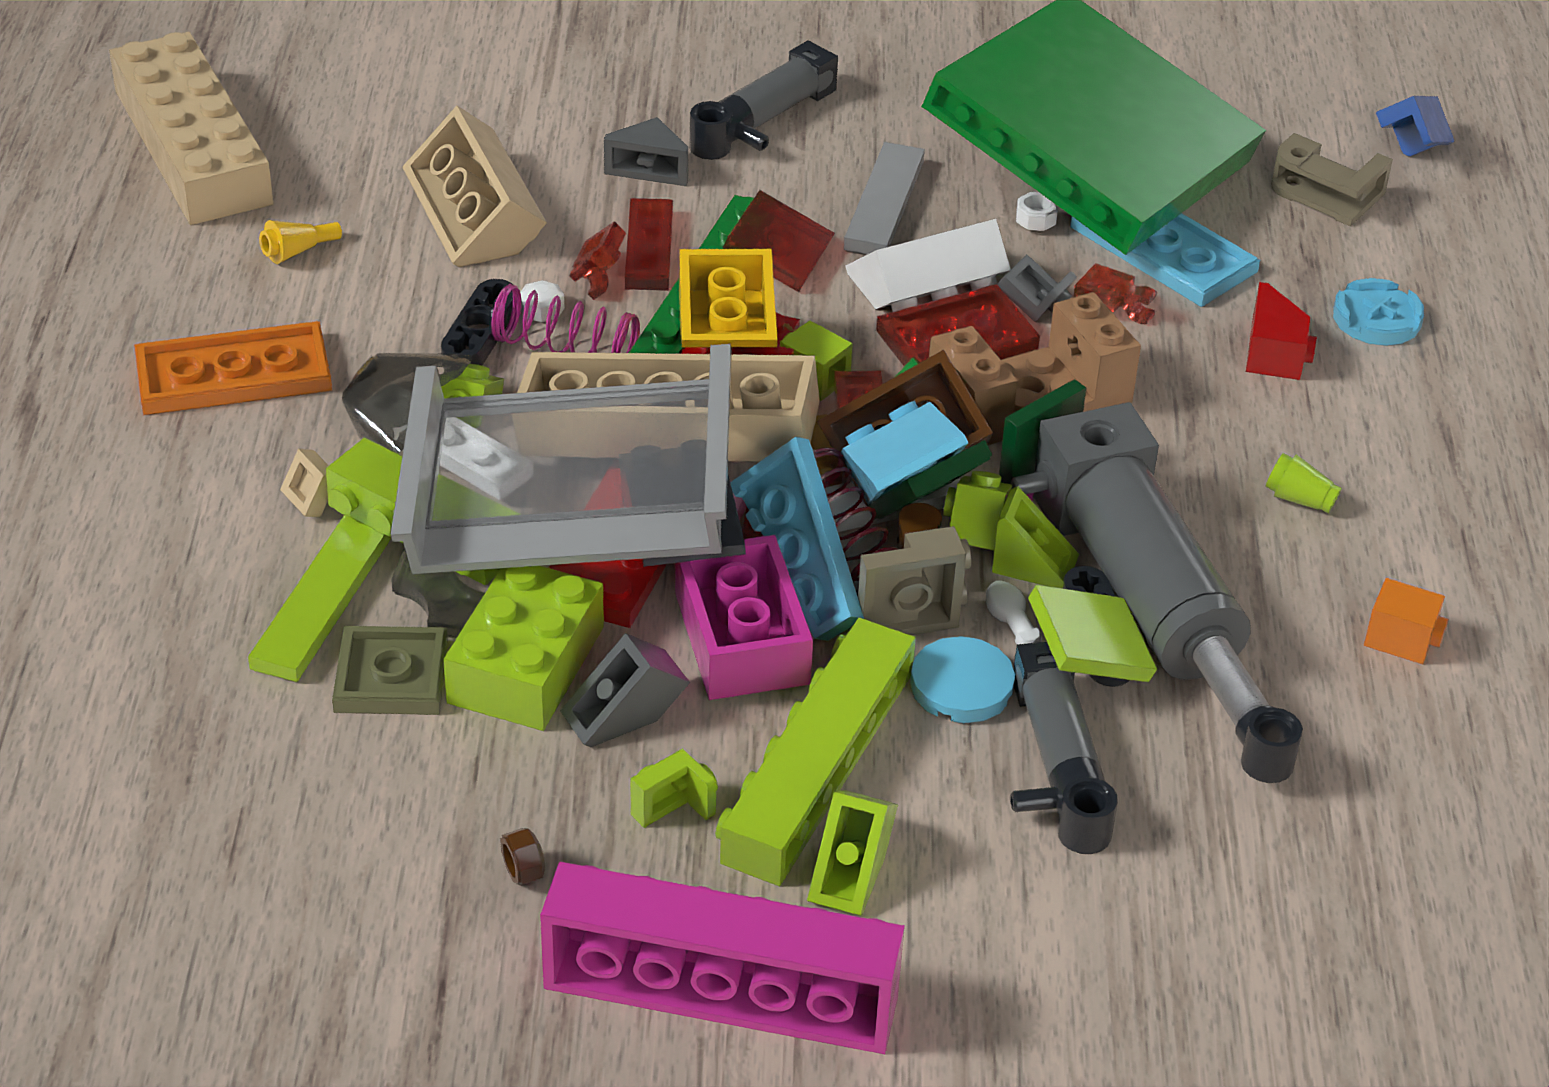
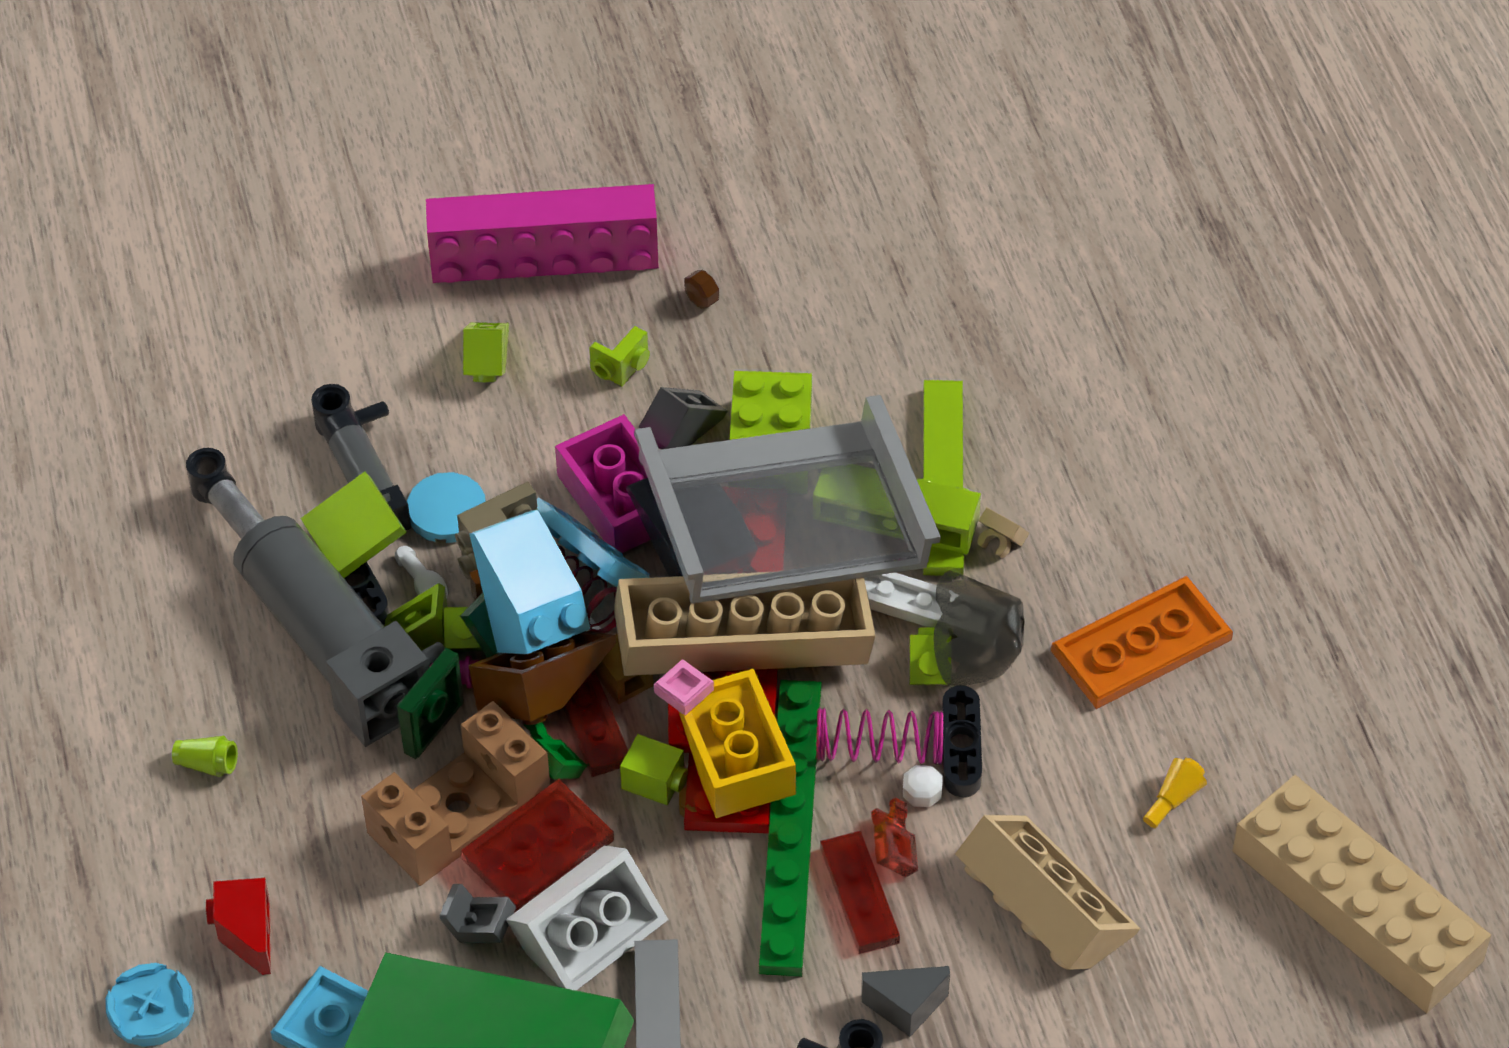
camera: 165 degrees right, 10 degrees up
(390, 670) = (844, 398): olive tile -> none
(766, 330) = (683, 687): none -> bright pink tile
(793, 237) = (735, 907): clear red tile -> none
(815, 752) = (534, 403): lime brick -> none
(1118, 290) = (408, 938): clear red plate -> none
(1406, 621) = (112, 633): orange brick -> none

